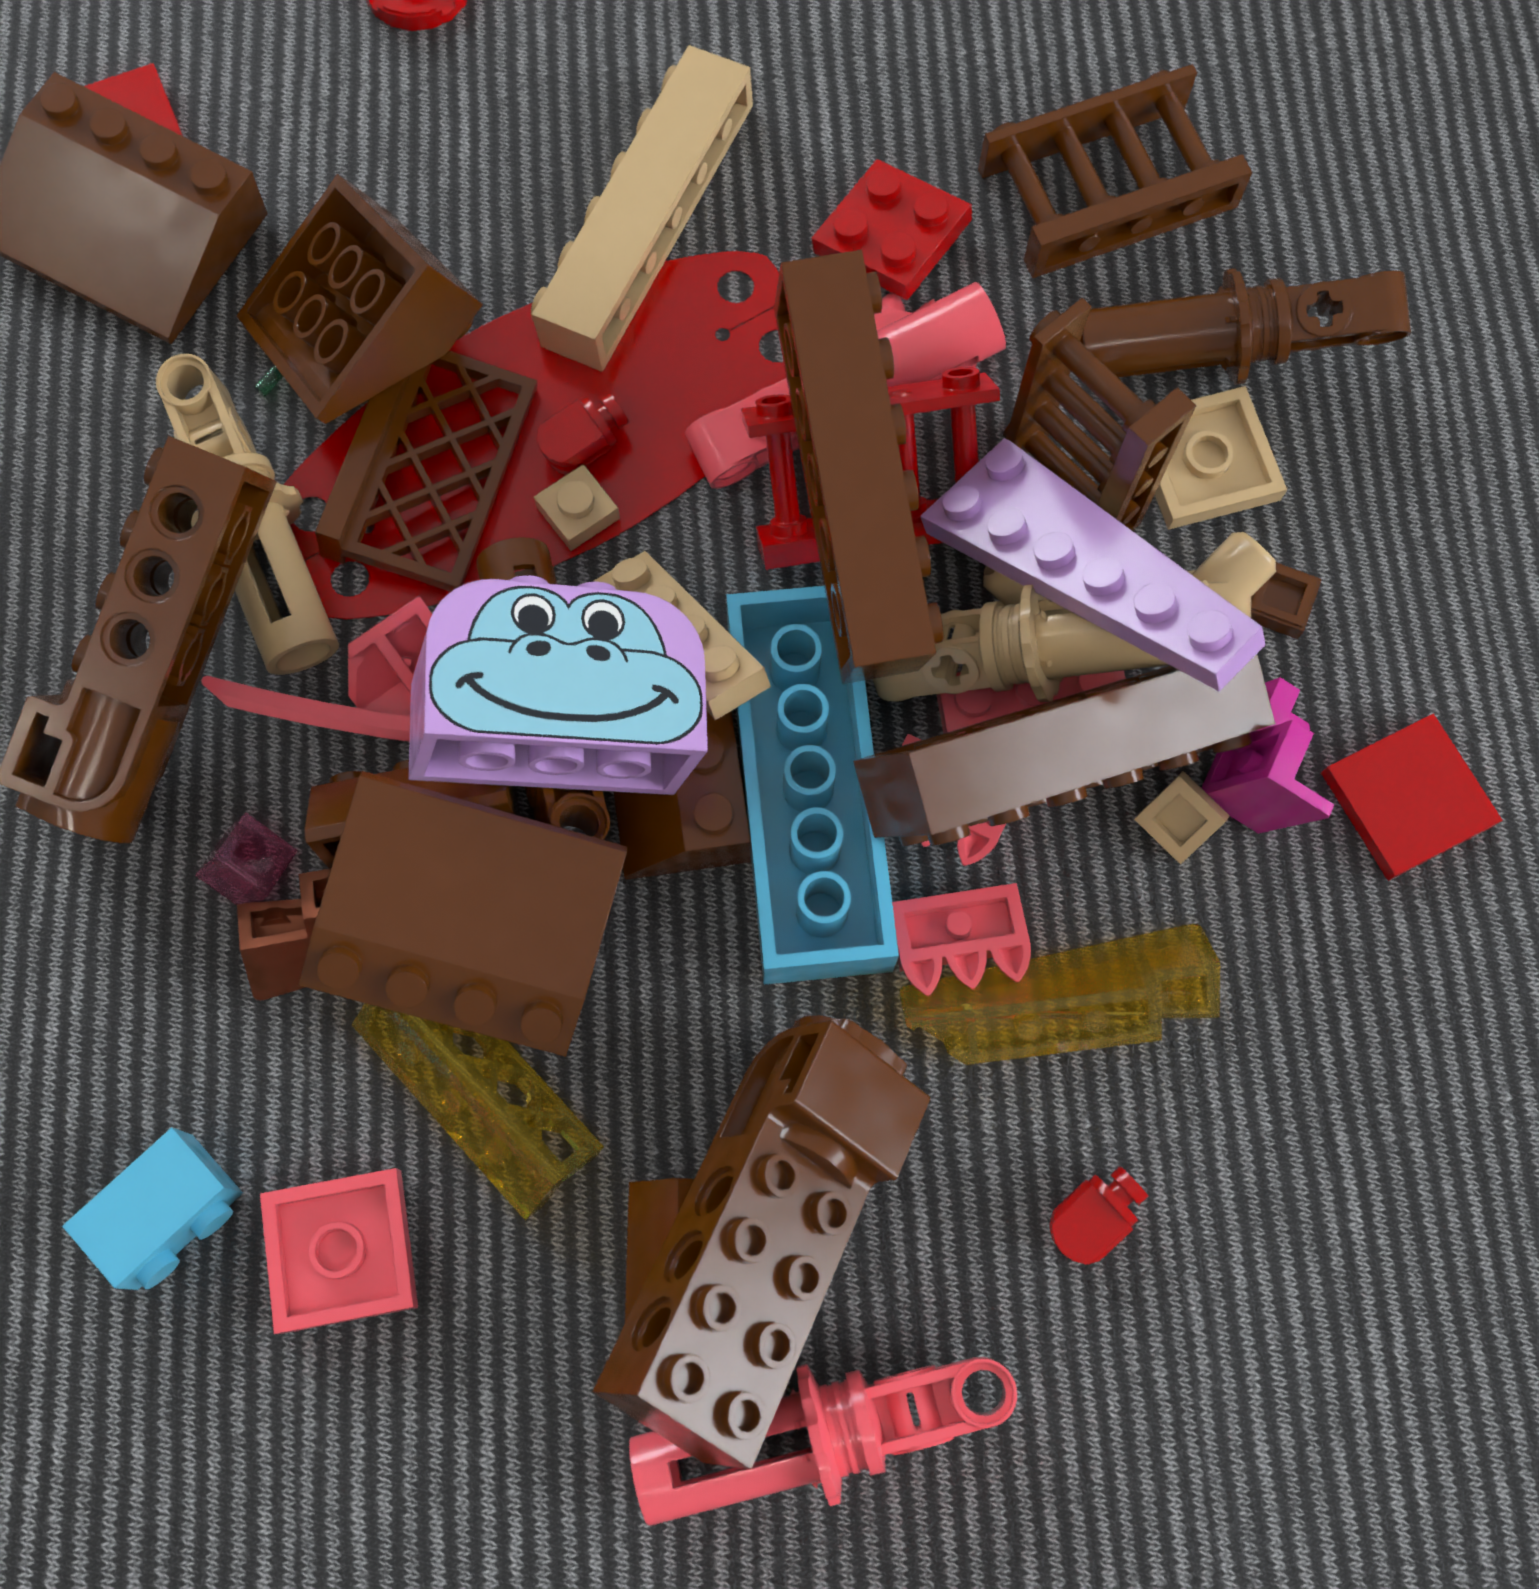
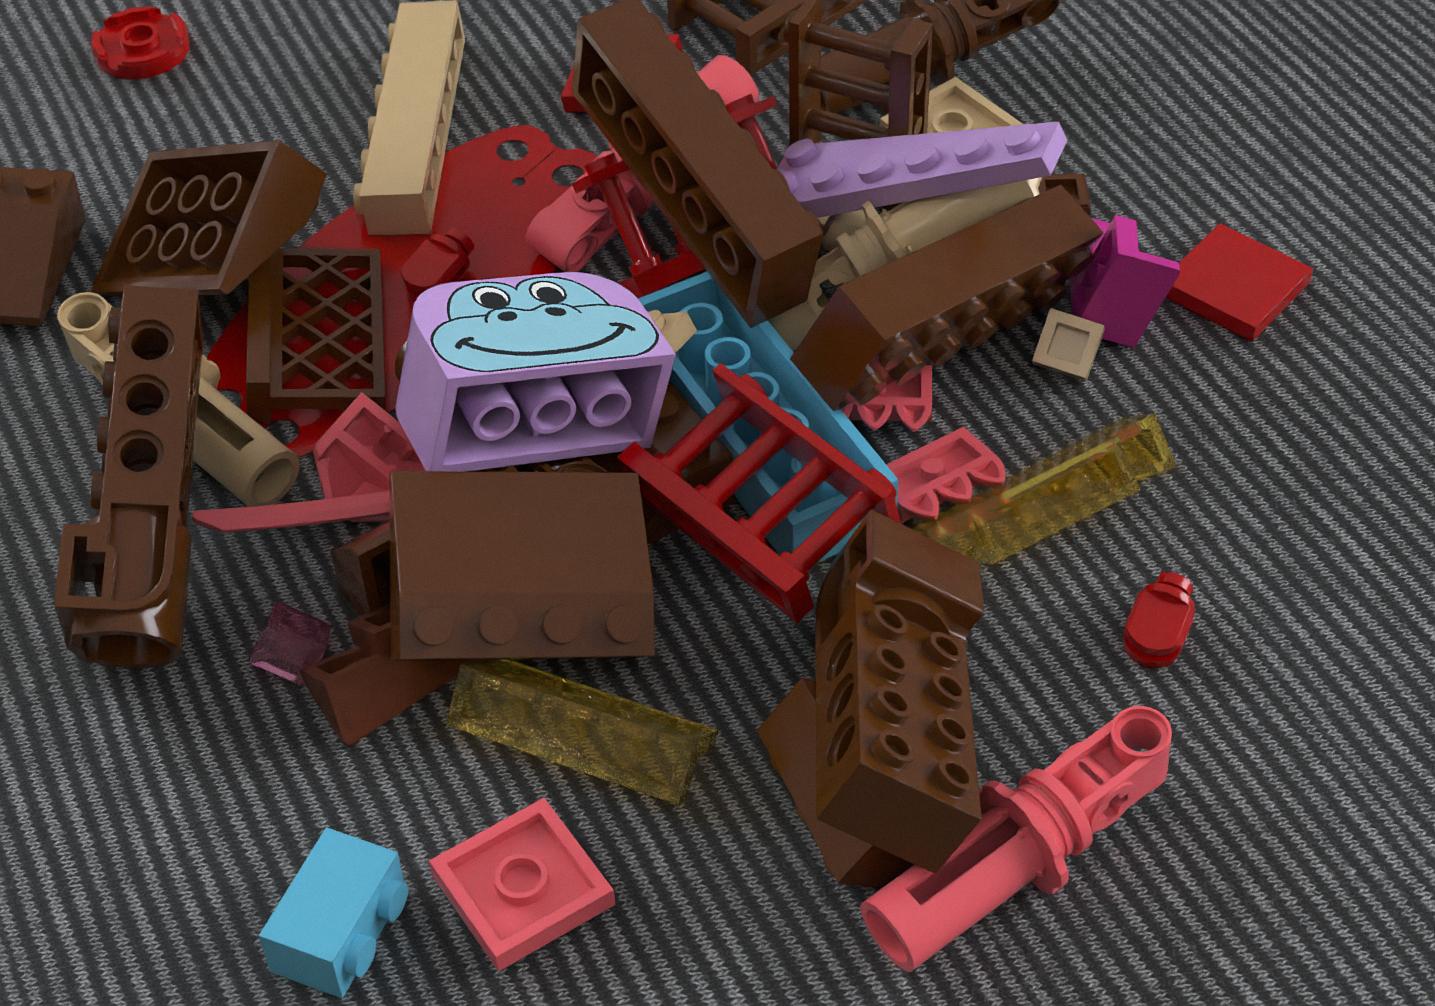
camera: 20 degrees left, 25 degrees down
(700, 970) = (741, 542): none -> red fence

